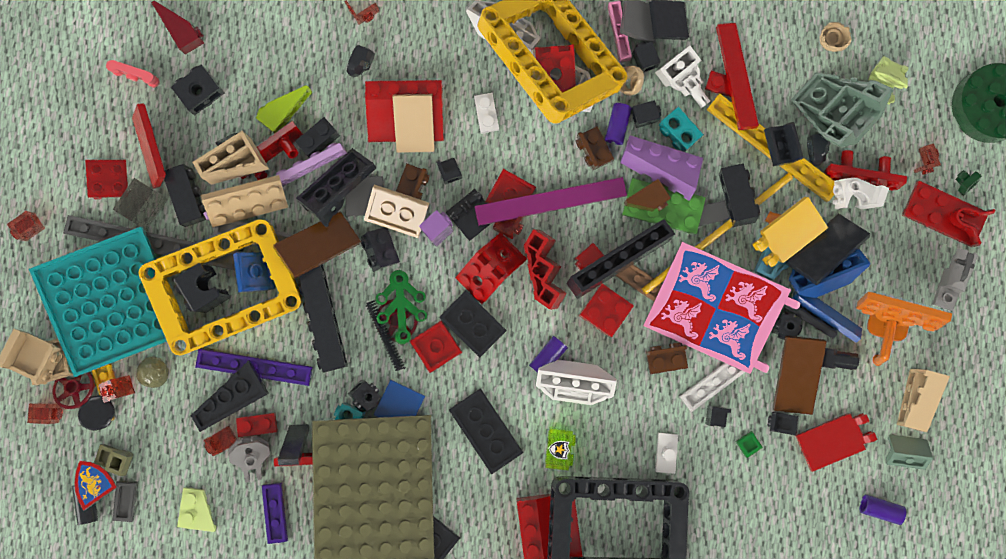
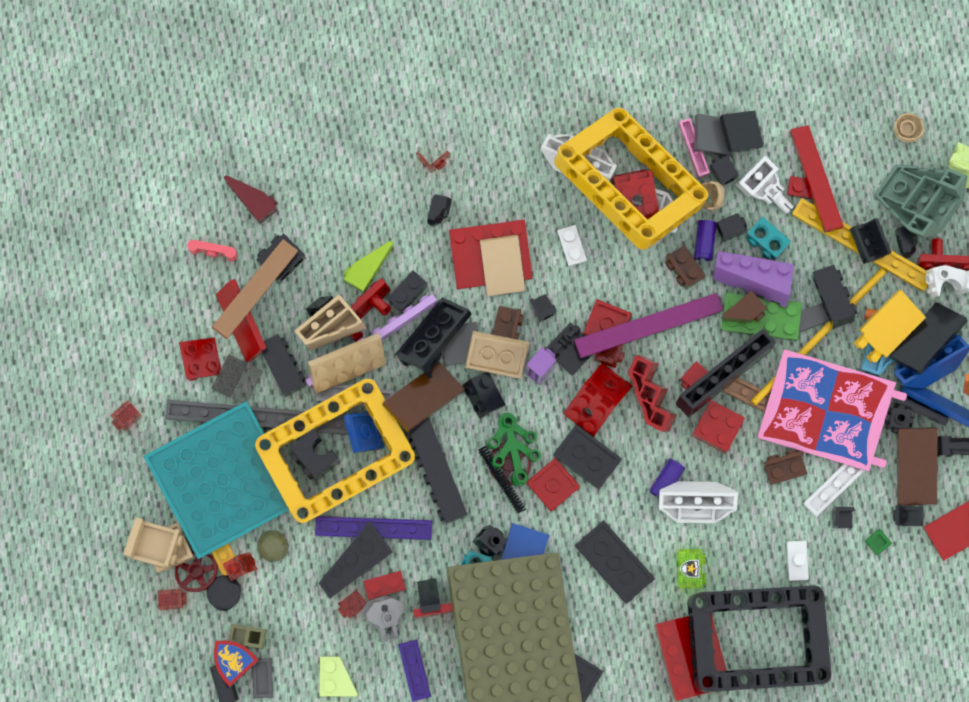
camera: 10 degrees left, 5 degrees down
(160, 116) = (254, 289): none -> medium nougat tile

